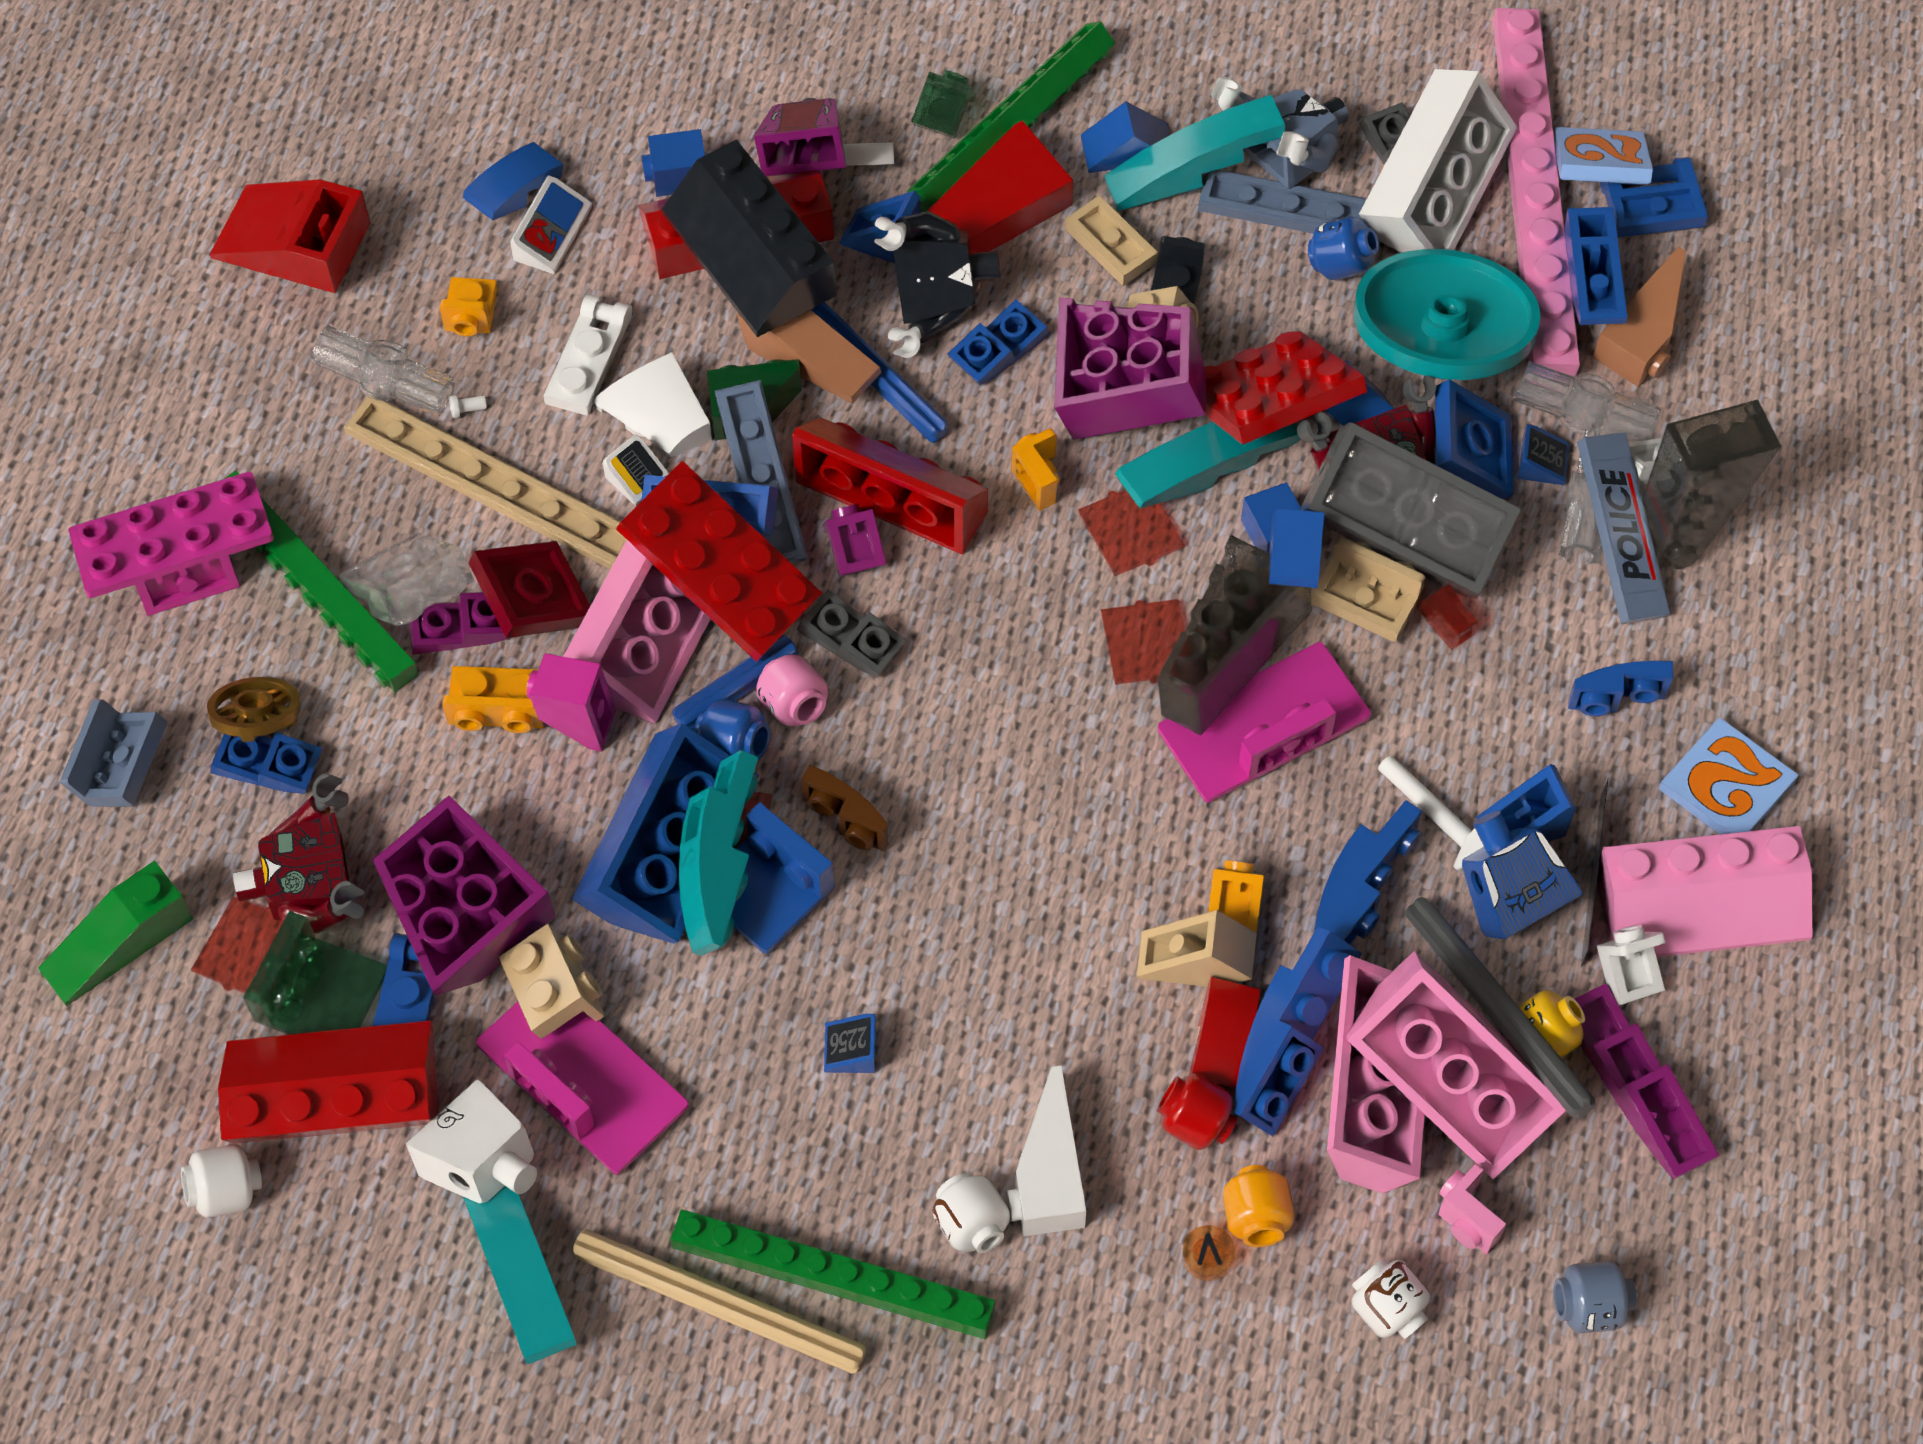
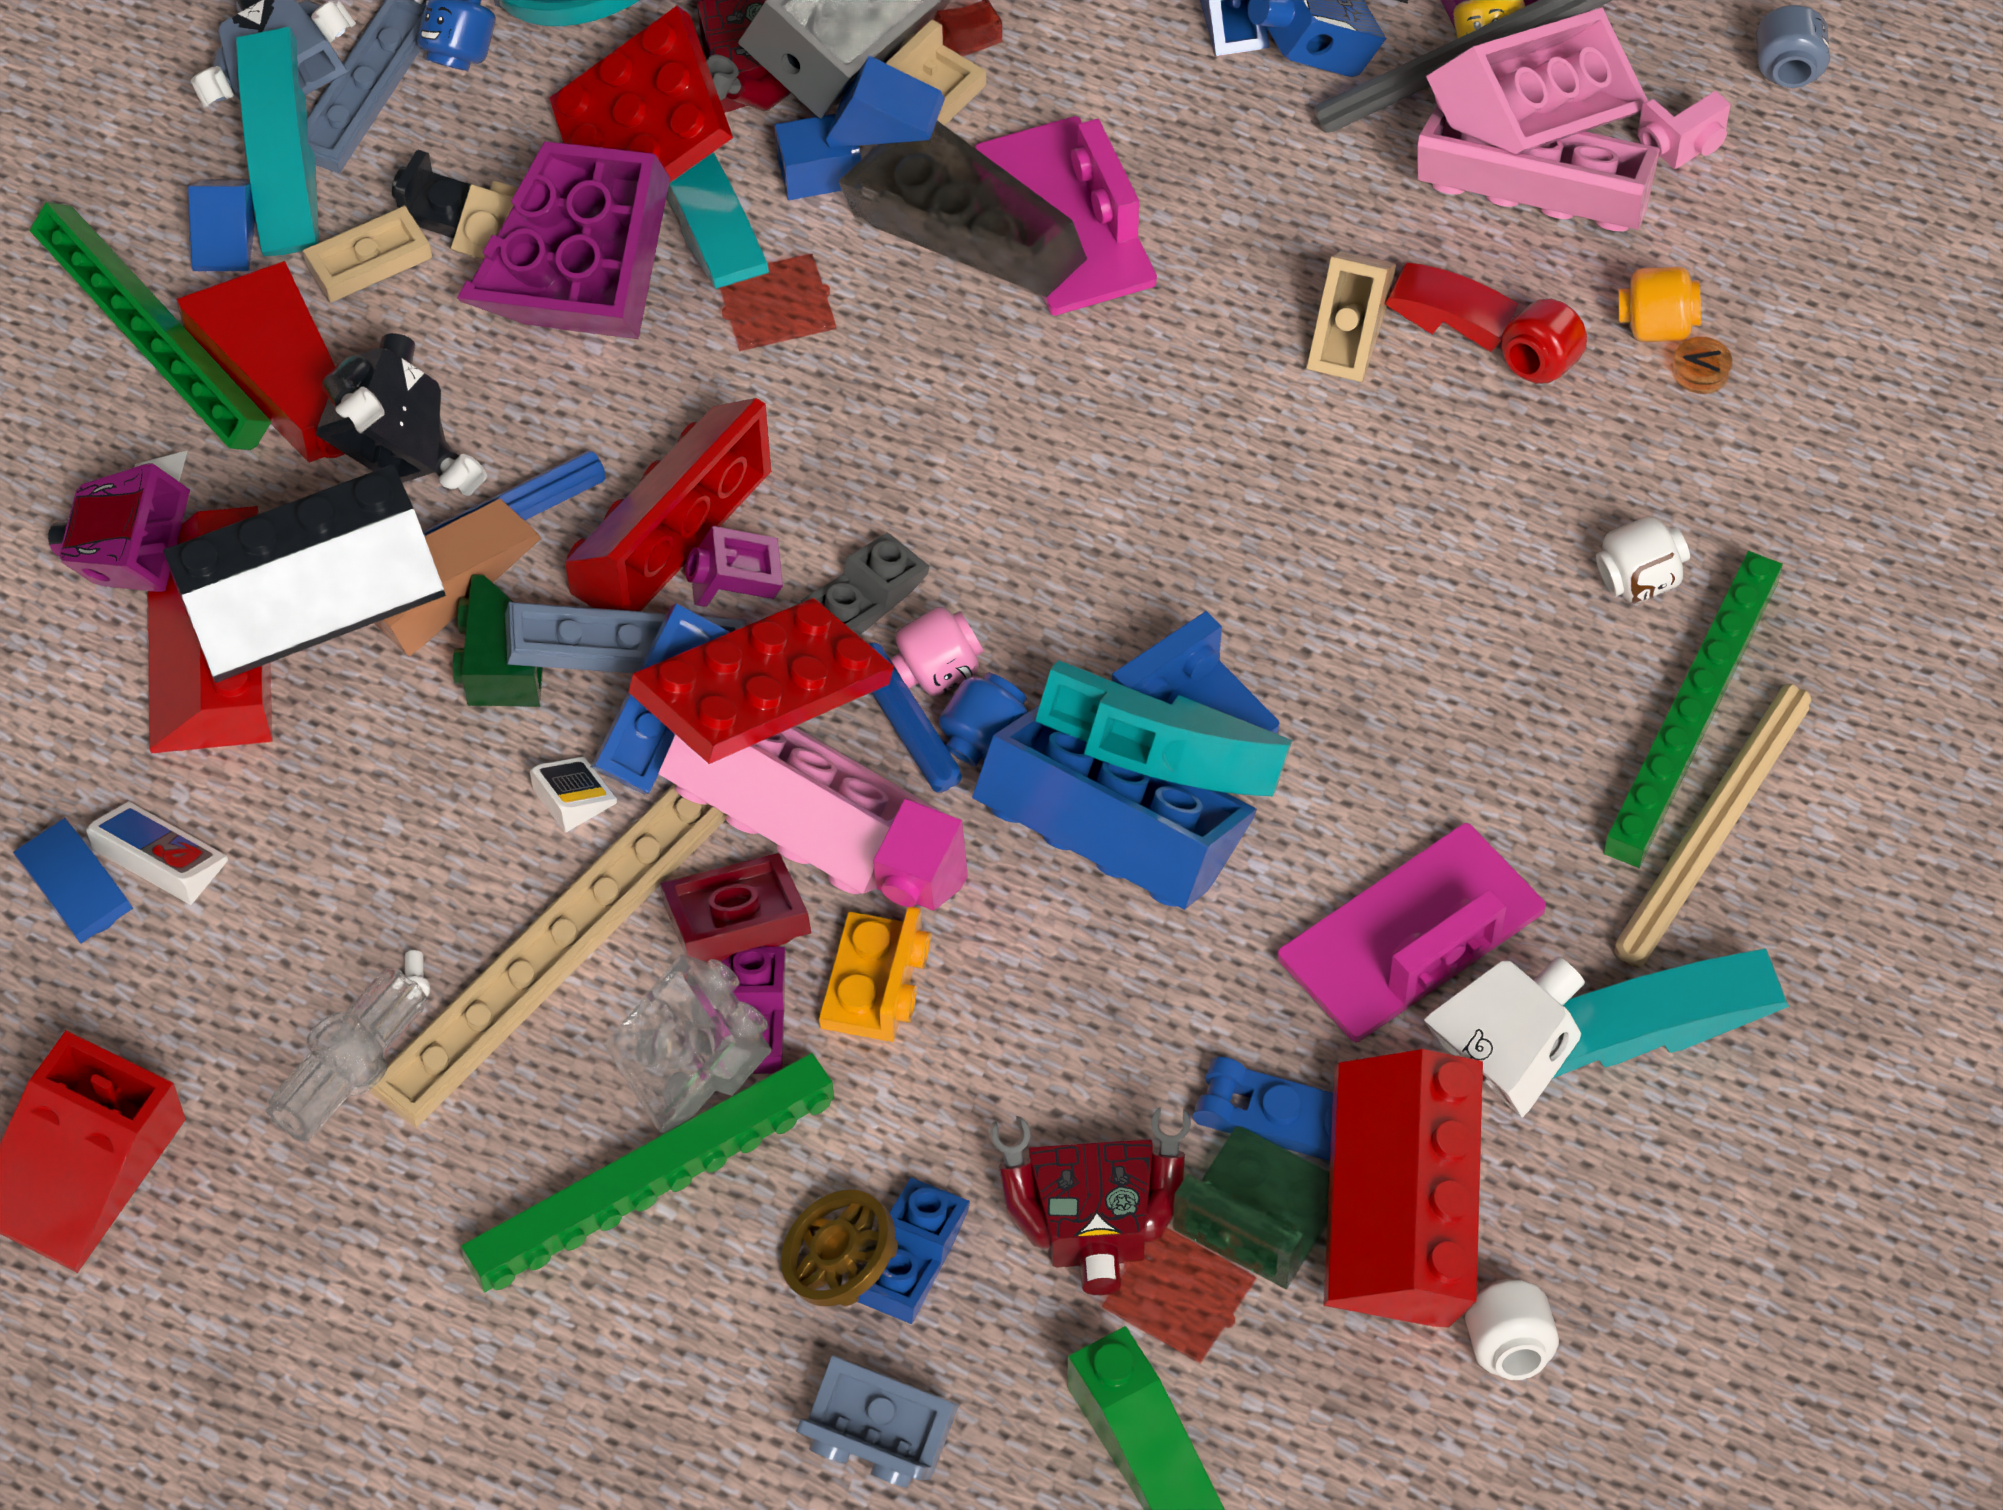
camera: 80 degrees left, 5 degrees down
(174, 545) = (560, 1323): dark pink bracket -> none
(459, 896) = (1166, 1014): magenta wedge -> none
(469, 306) = (258, 955): light orange bracket -> none
(551, 980) = (1297, 938): tan bracket -> none
(587, 355) = (375, 827): white plate -> none
(658, 406) = (483, 750): white slope -> none
(671, 159) = (107, 686): blue brick -> none
(850, 1045) = (1412, 653): slope -> none
(858, 818) = (1115, 610): reddish brown slope -> none
(862, 229) = (283, 464): blue slope -> none
(943, 103) = (105, 390): clear green bracket -> none
(994, 348) = (481, 388): blue slope -> none
(1034, 469) = (682, 373): light orange bracket -> none
(1048, 1177) = (1583, 480): white slope -> none
(1141, 638) = (933, 310): clear red piece -> none
(1237, 892) = (1285, 267): light orange bracket -> none
(1282, 1035) = (1483, 252): blue slope -> none
(1361, 871) = (1303, 172): blue slope -> none
(1391, 1299) = (1777, 210): white head -> none
(1433, 808) = (1256, 54): white piece -> none

